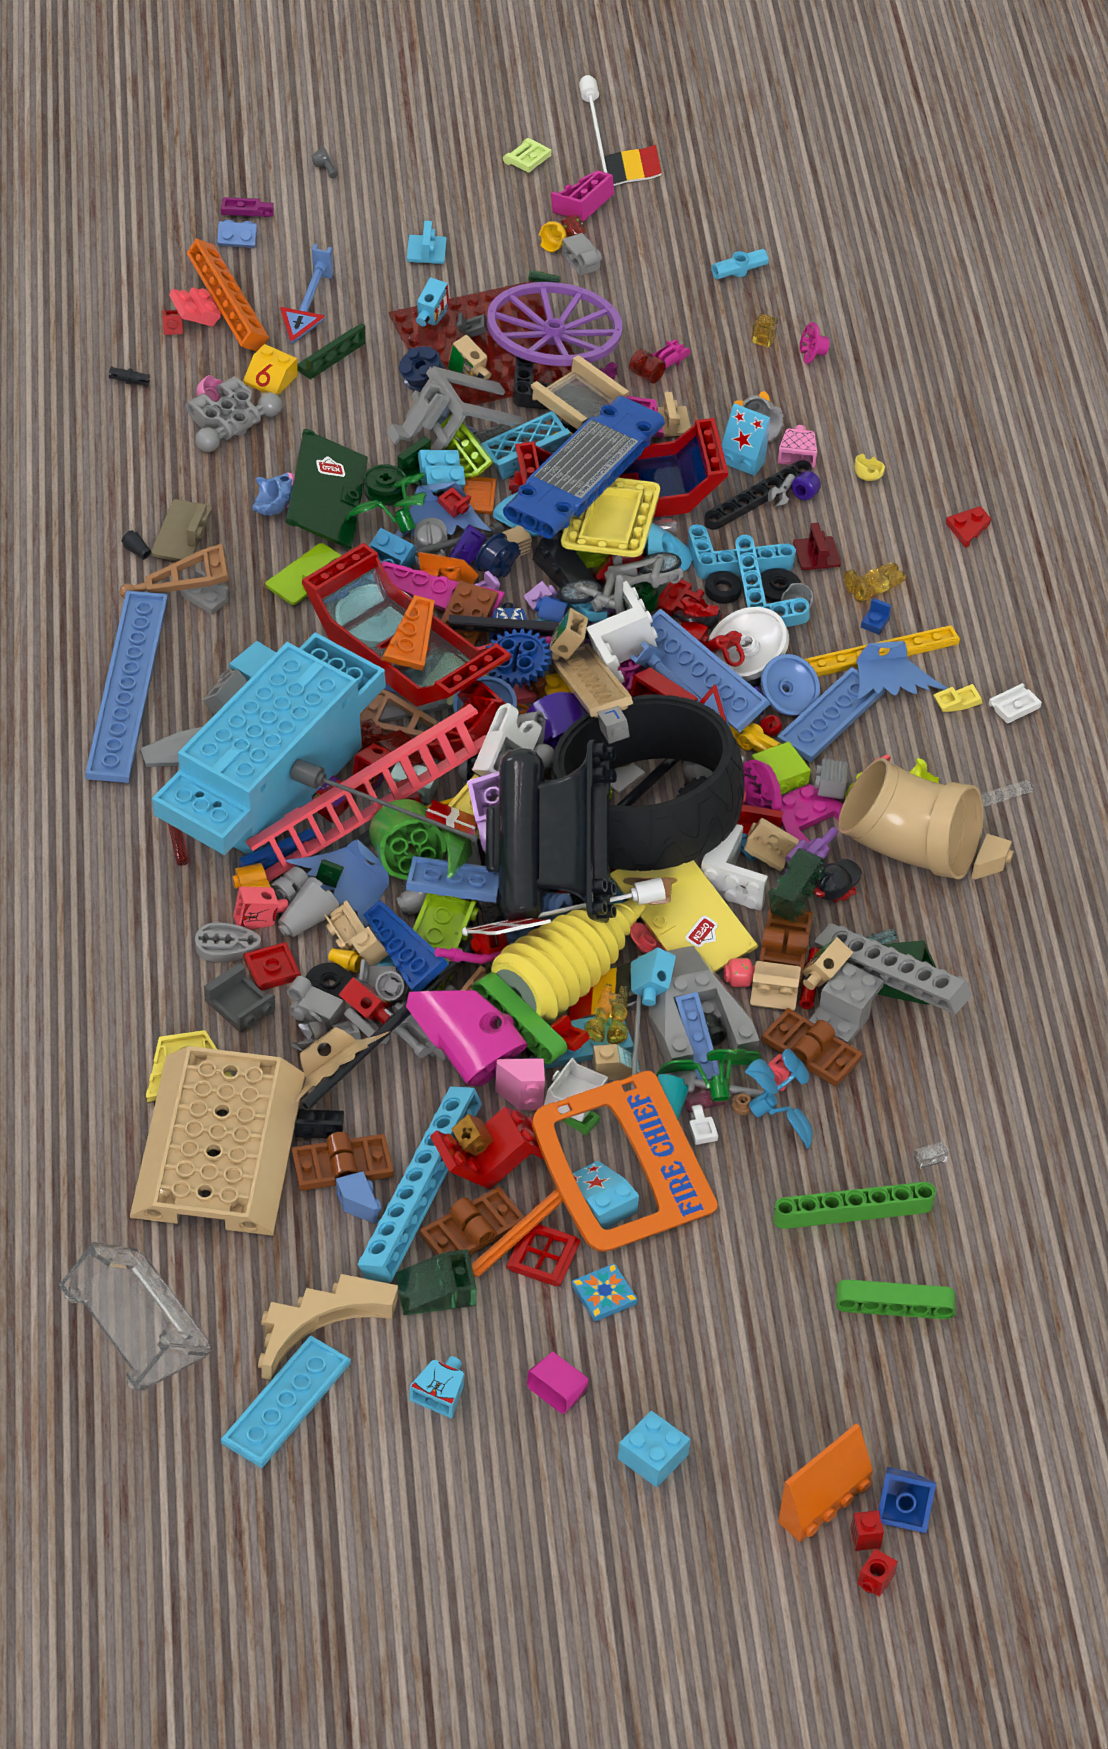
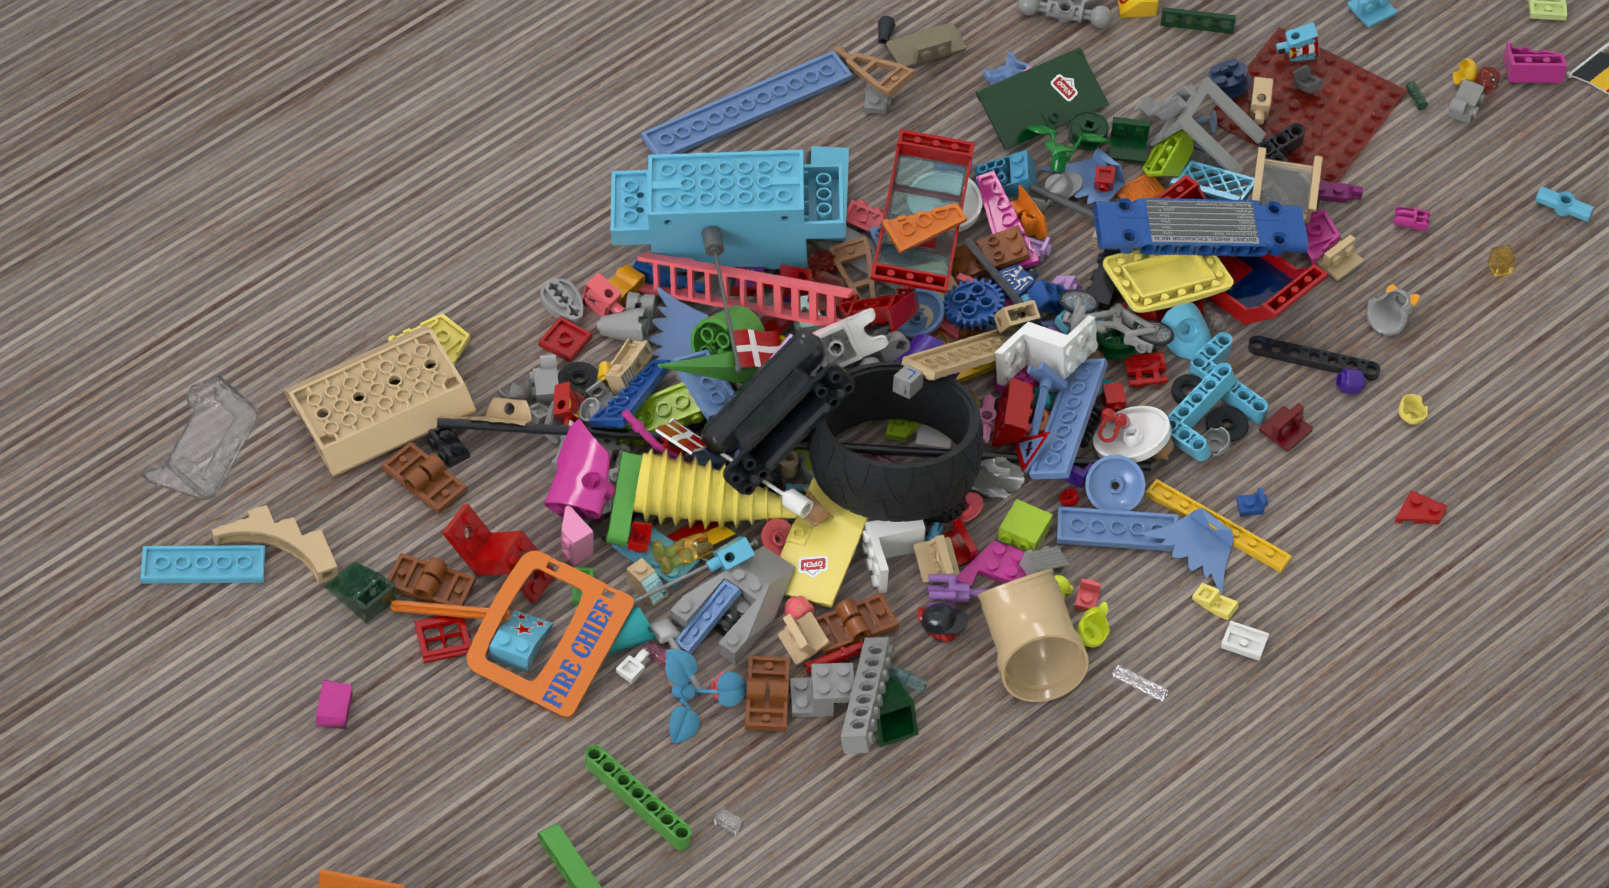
camera: 55 degrees right, 5 degrees up
(238, 998) = (518, 337): dark grey panel -> none
(288, 582) = (979, 135): lime bracket -> none
(329, 873) = (663, 317): dark green bracket -> none
(357, 1198) = (401, 502): medium blue slope -> none
(415, 1191) = (428, 531): medium azure brick -> none
(439, 1386) = (279, 640): medium azure torso -> none
(441, 467) = (1131, 152): medium azure plate -> none
(468, 545) = (1067, 215): dark purple plate -> none
(476, 1136) = (490, 530): pearl gold brick -> none
(497, 555) = (1072, 234): dark blue wheel -> none
(553, 329) = (1352, 130): medium lavender wheel -> none
(572, 1081) = (601, 565): white container -> none
(604, 1292) = (438, 691): tile -> none
(647, 366) = (1380, 210): clear red wheel -> none
(653, 1448) = (321, 791): medium azure brick -> none
(699, 612) = (1136, 387): hair -> none
(719, 1084) = (675, 629): green plant -> none
(746, 439) = (1348, 314): medium azure slope -> none
(753, 738) = (1044, 494): yellow piece -> none
(770, 787) = (990, 522): dark pink piece -> none
(783, 499) = (1329, 369): light grey bar -> none
(796, 885) = (899, 594): clear green wedge -> none
(798, 445) = (1390, 353): bright pink torso -> none
(815, 343) = (1519, 301): dark pink wheel -> none
(826, 963) = (848, 652): tan torso -> none
(873, 582) = (1295, 484): clear yellow piece -> none
(992, 856) = (1061, 707): tan slope -> none

